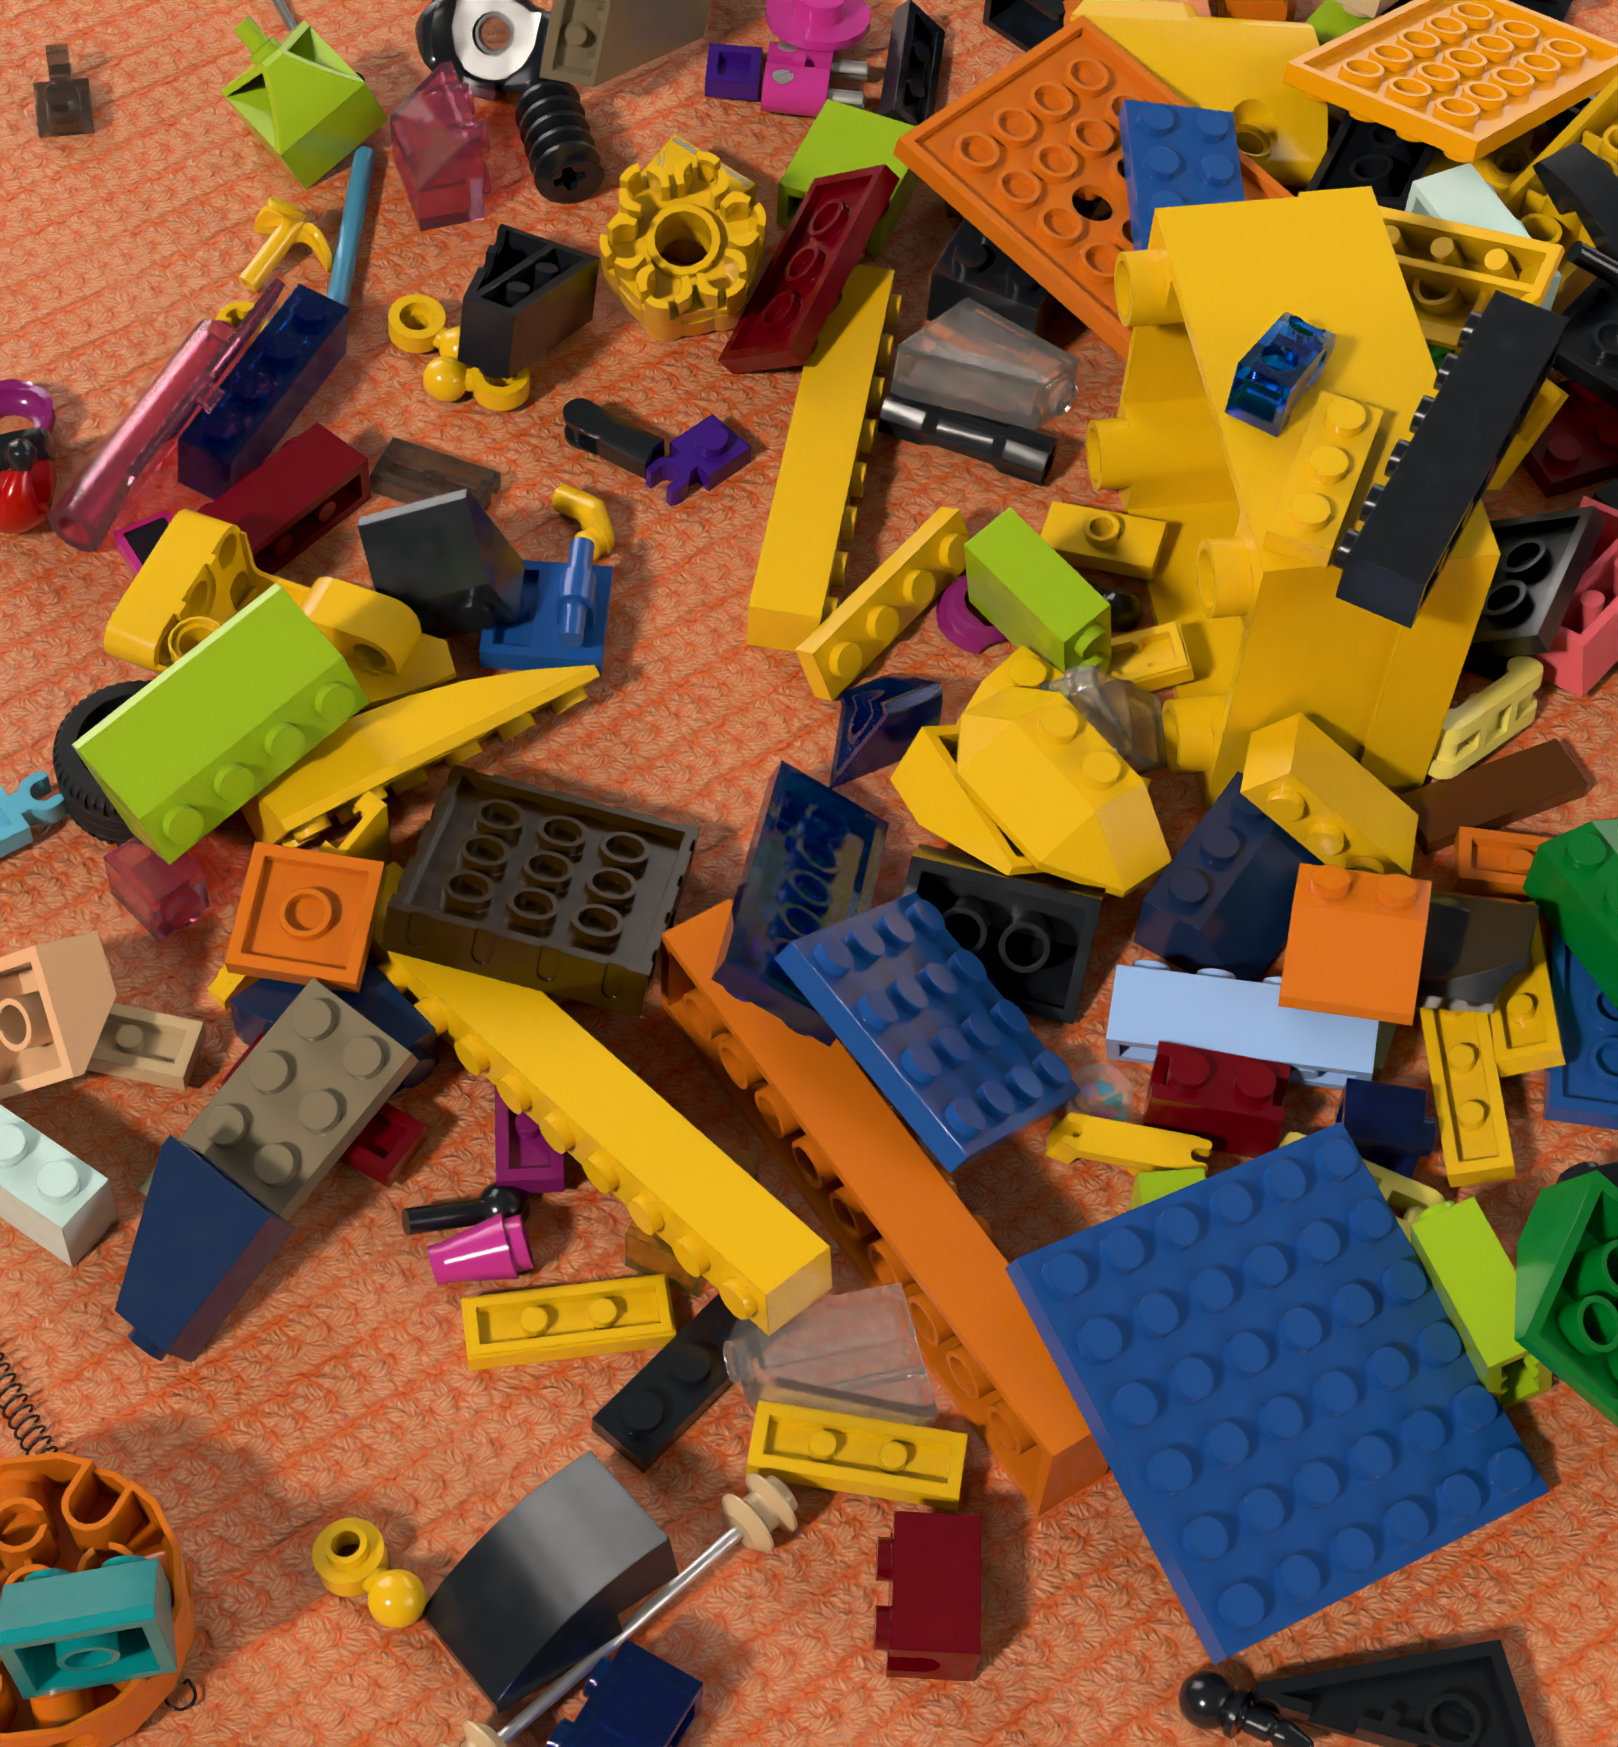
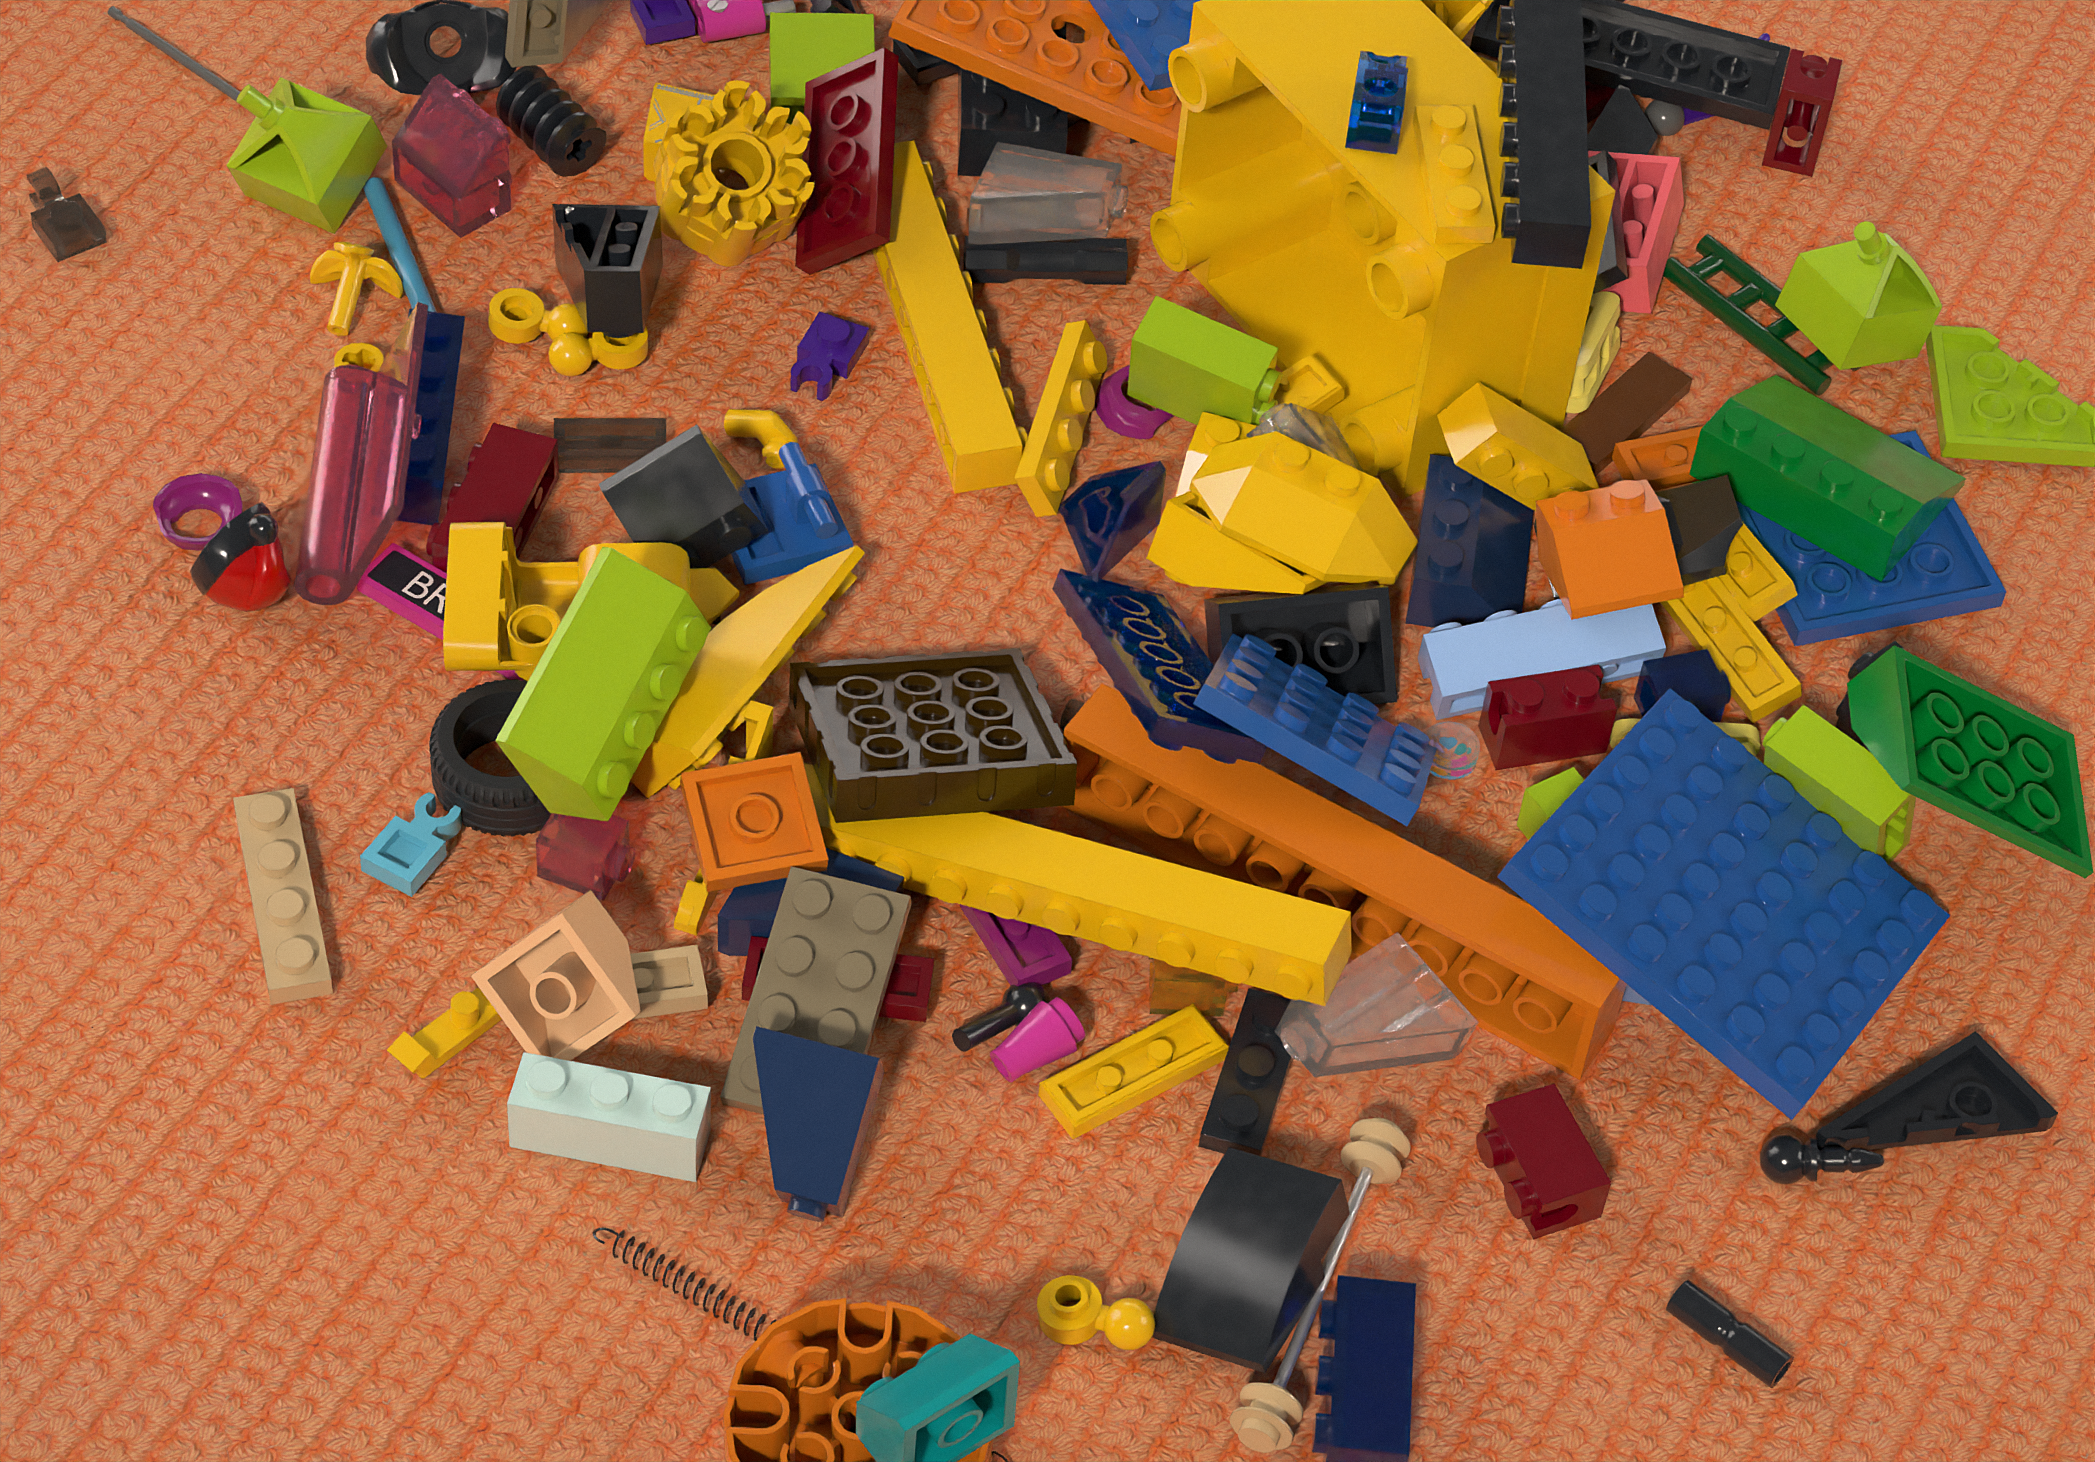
camera: 25 degrees left, 5 degrees down
(610, 437) = (743, 359): black bar -> none
(857, 1454) = (1424, 1081): yellow plate -> none
(1105, 539) = (1225, 302): yellow plate -> none
(1124, 1144) = (1493, 776): yellow piece -> none

